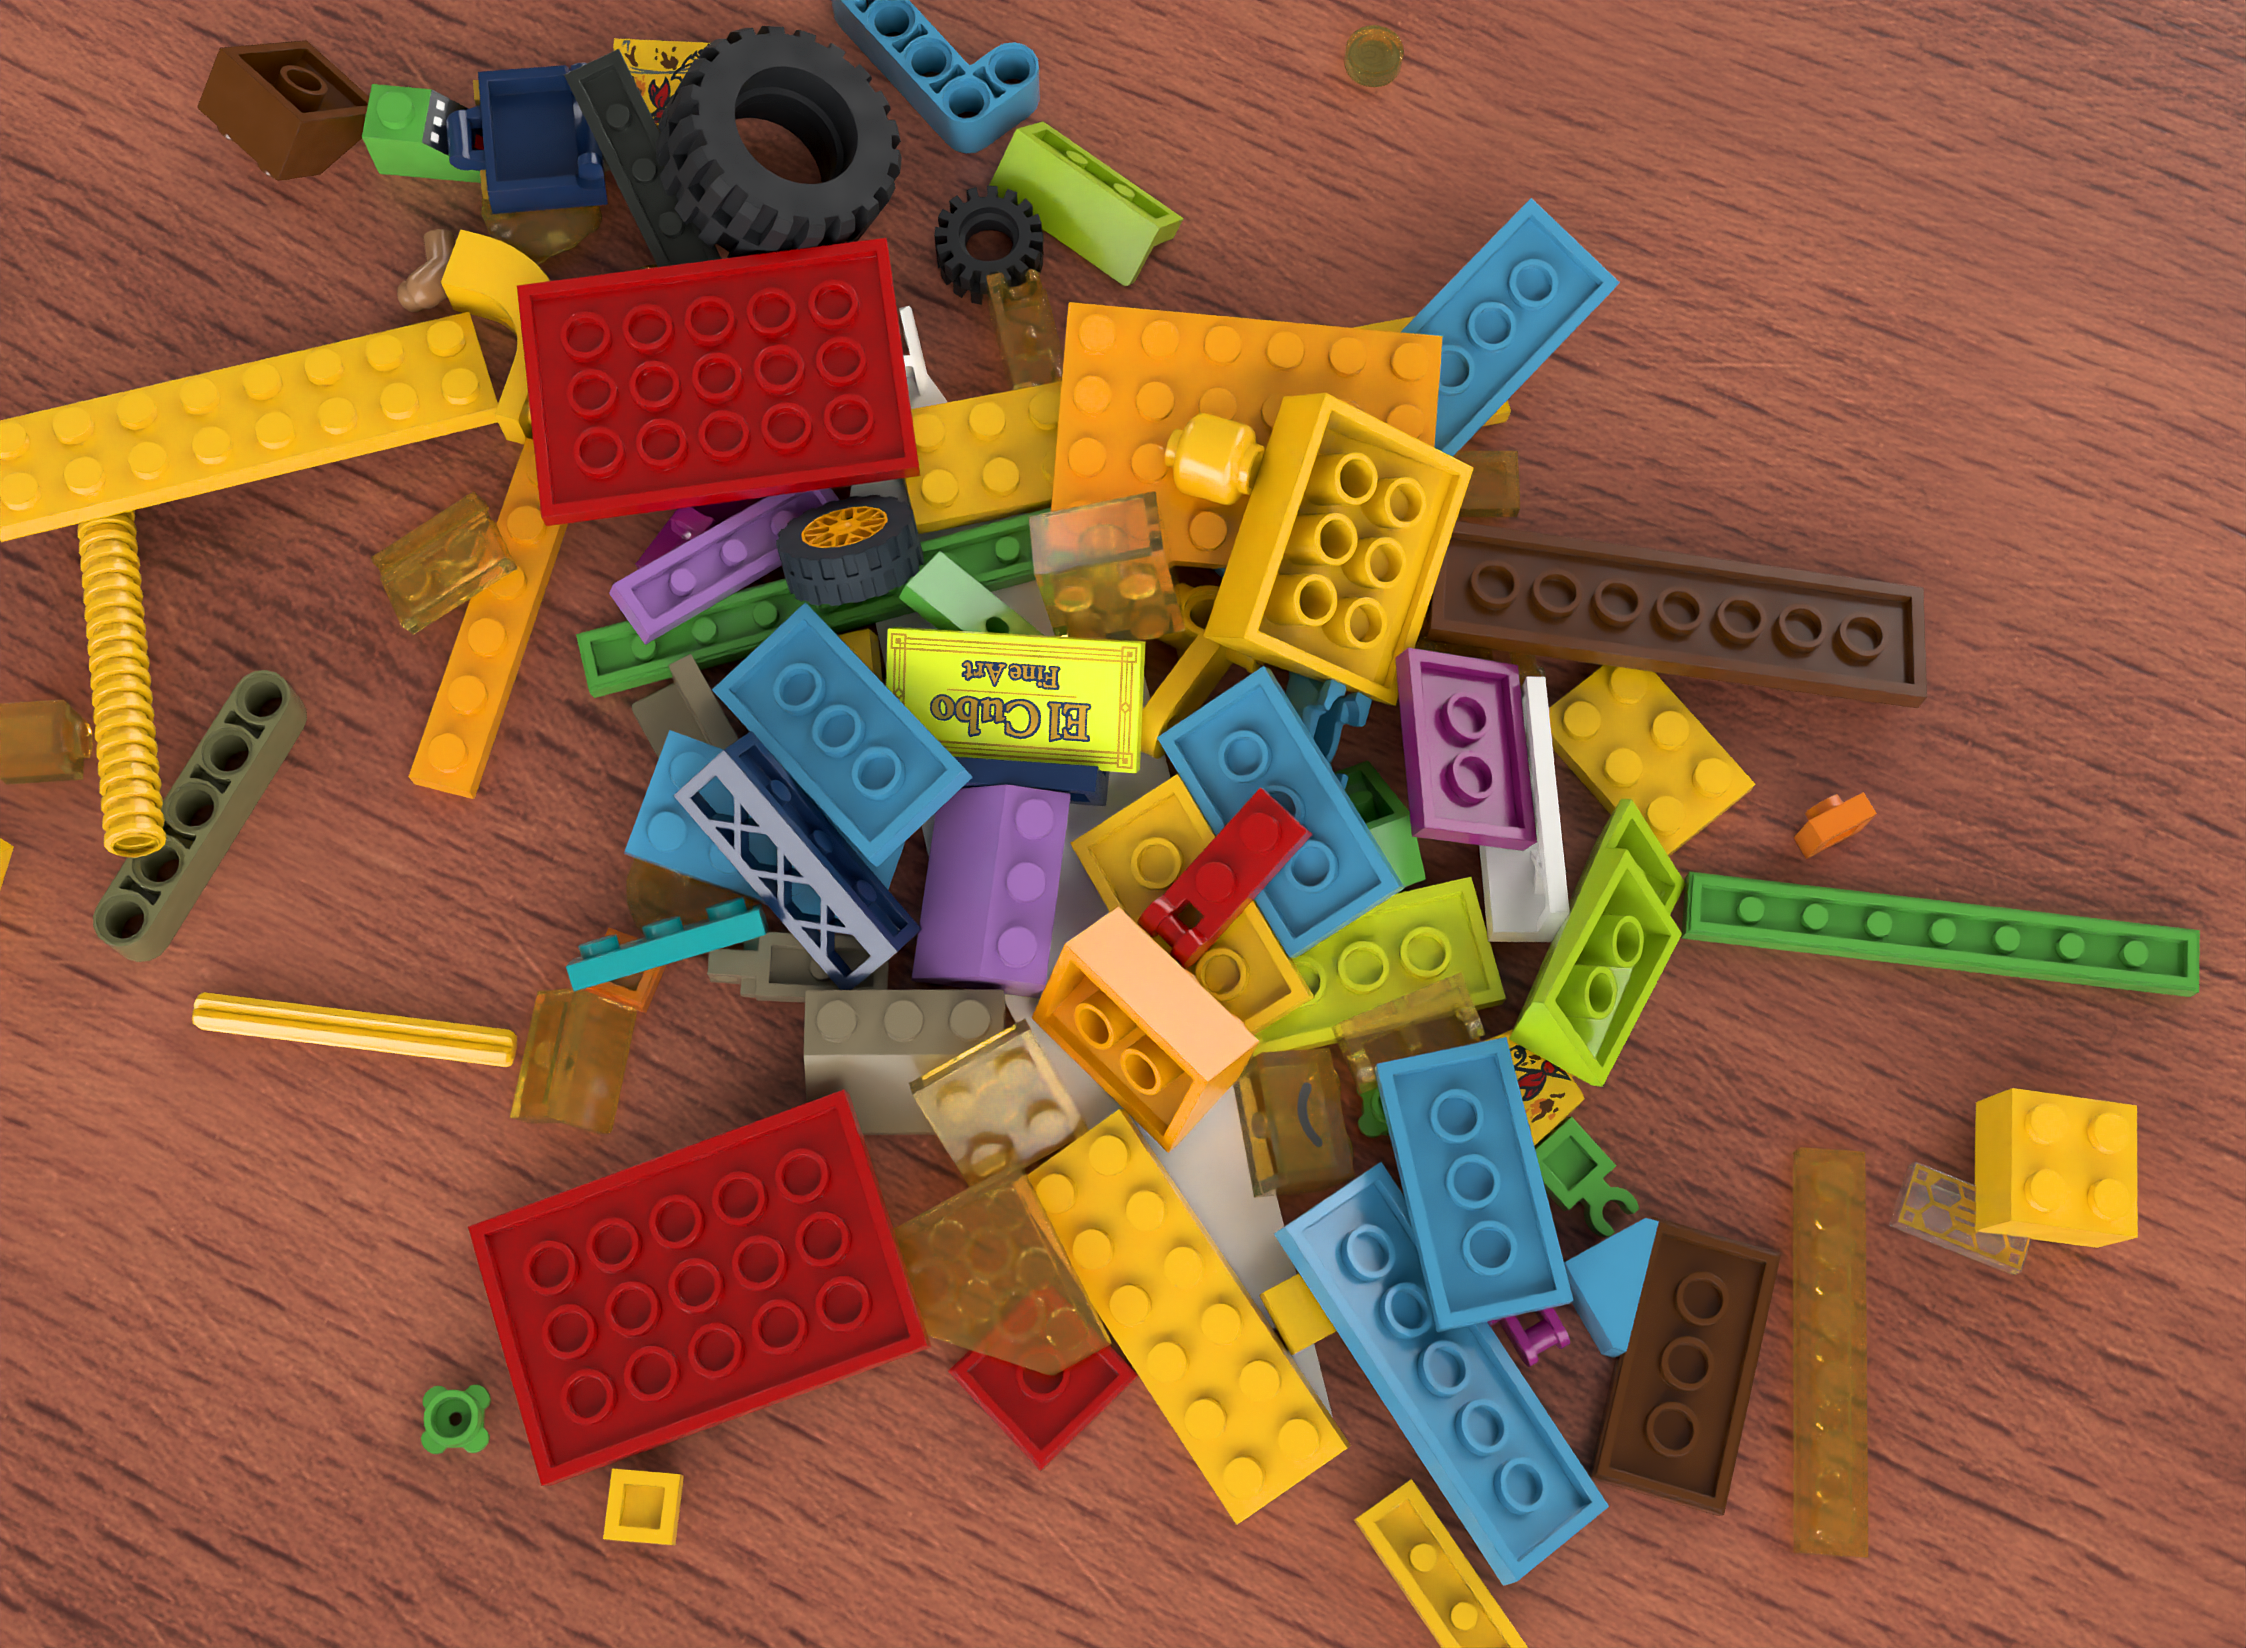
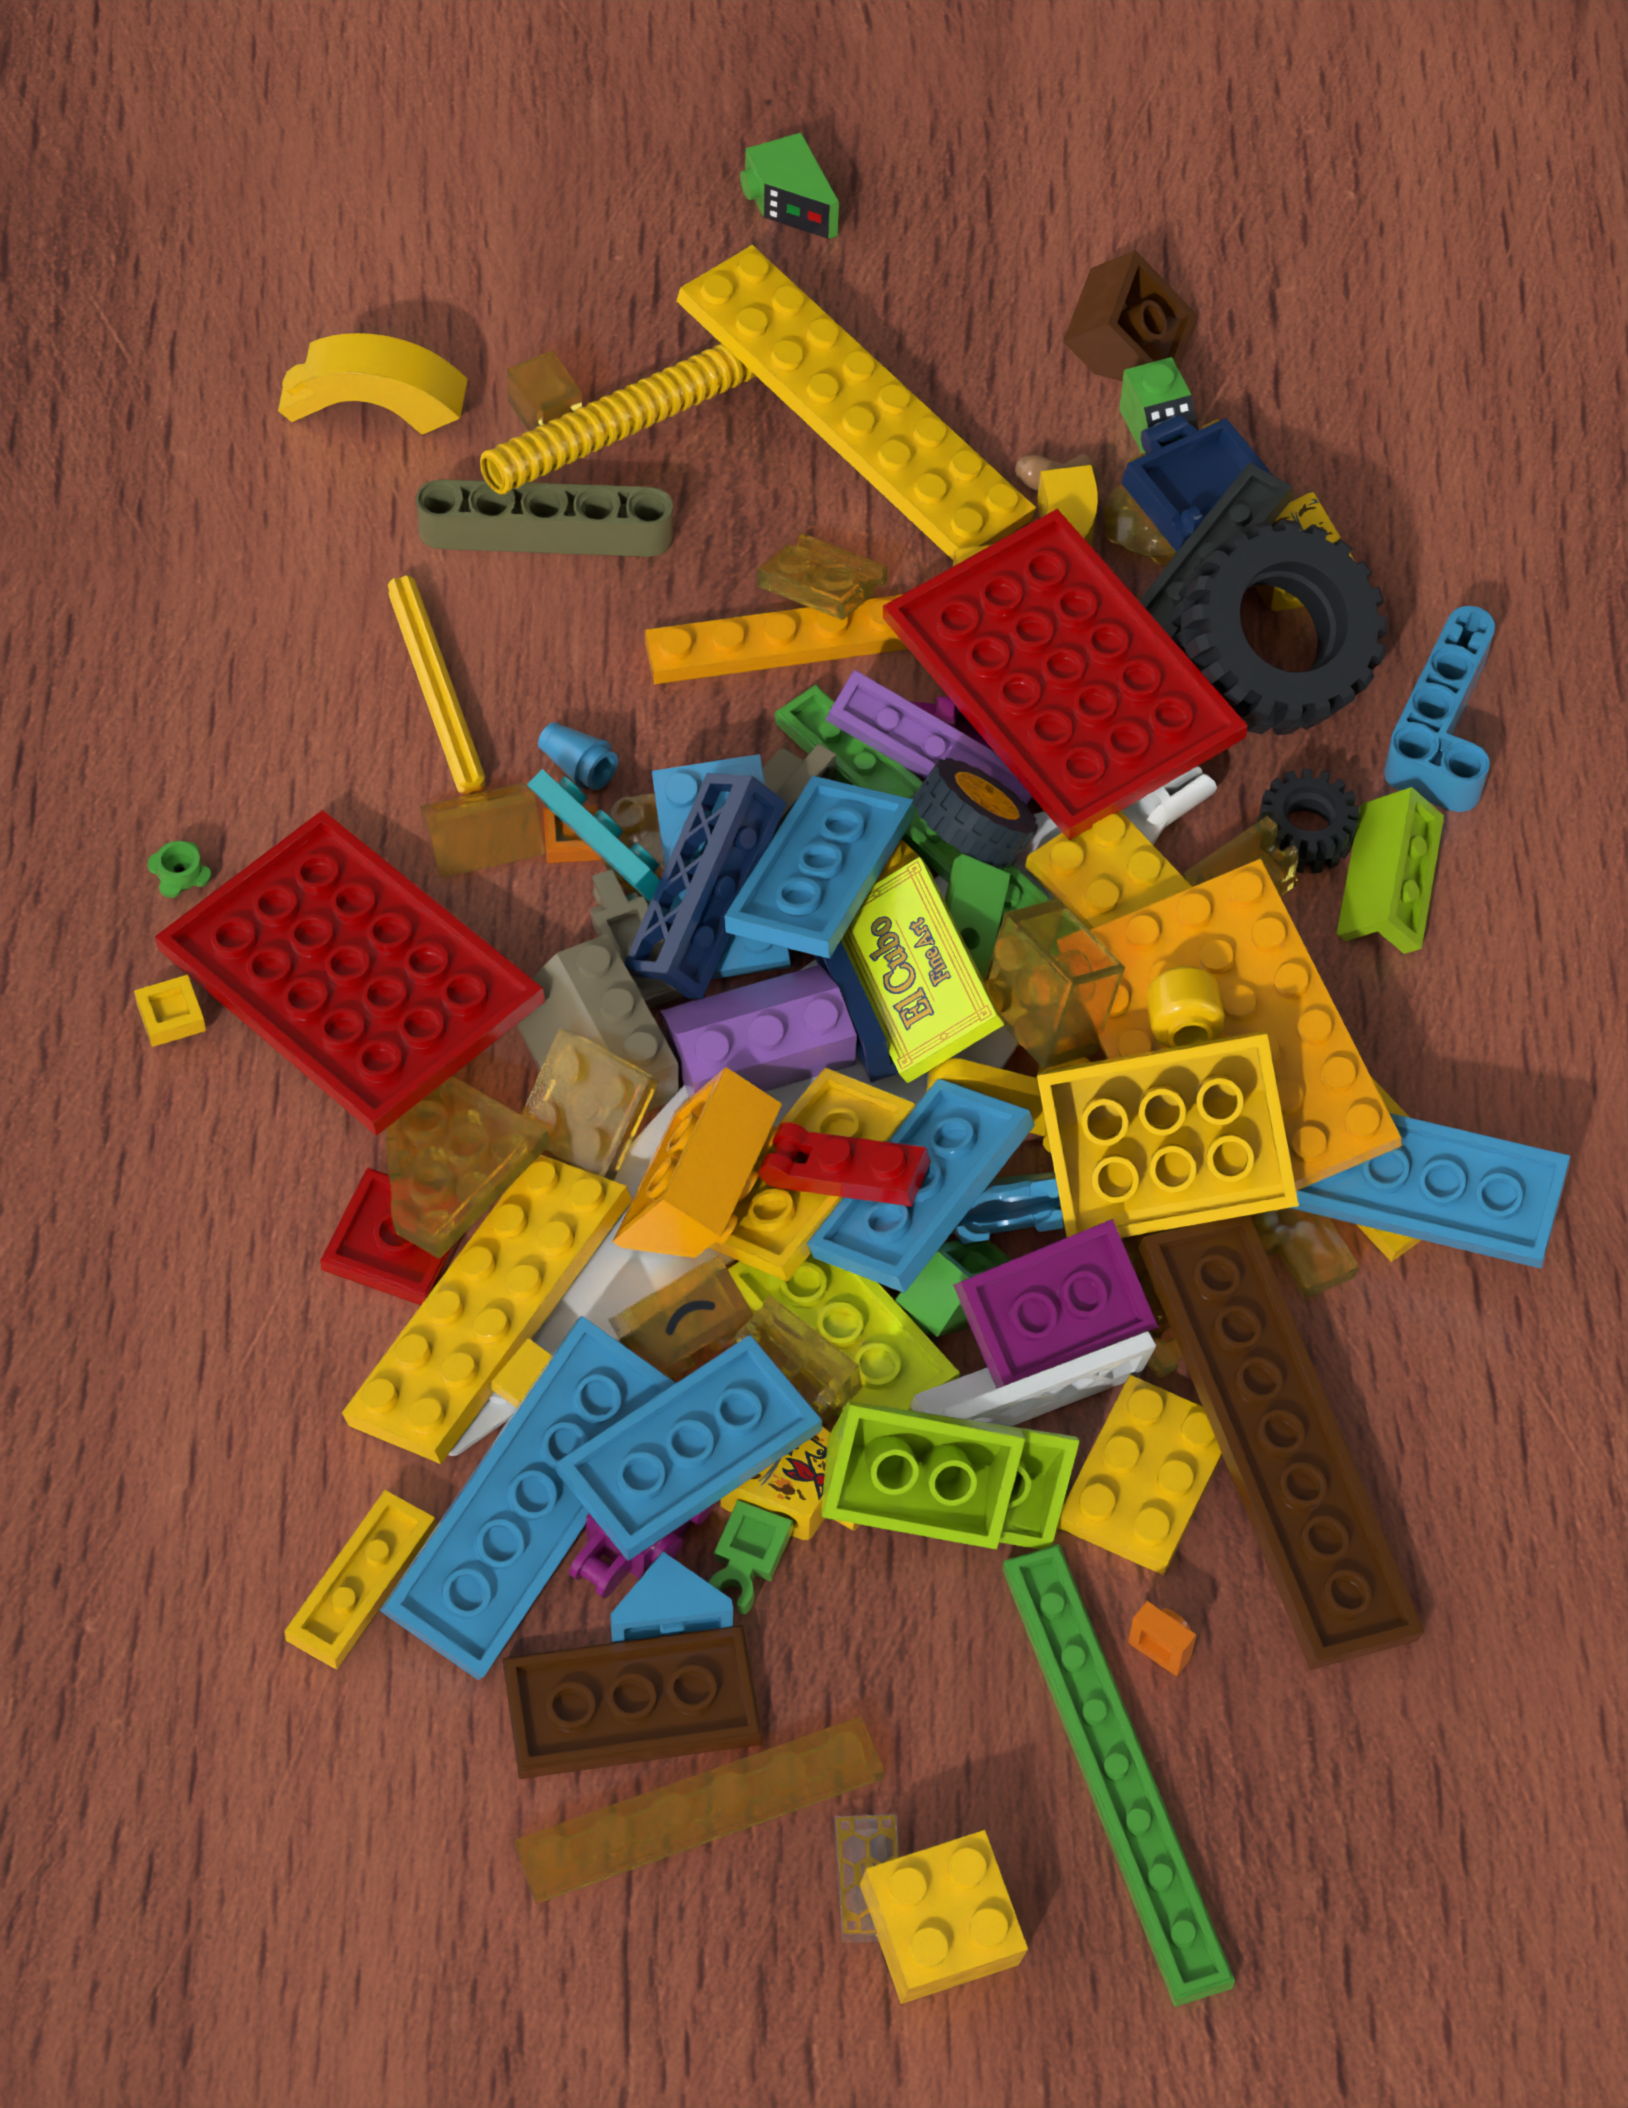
camera: 65 degrees right, 15 degrees down
(537, 918) = (579, 755): none -> dark azure cone

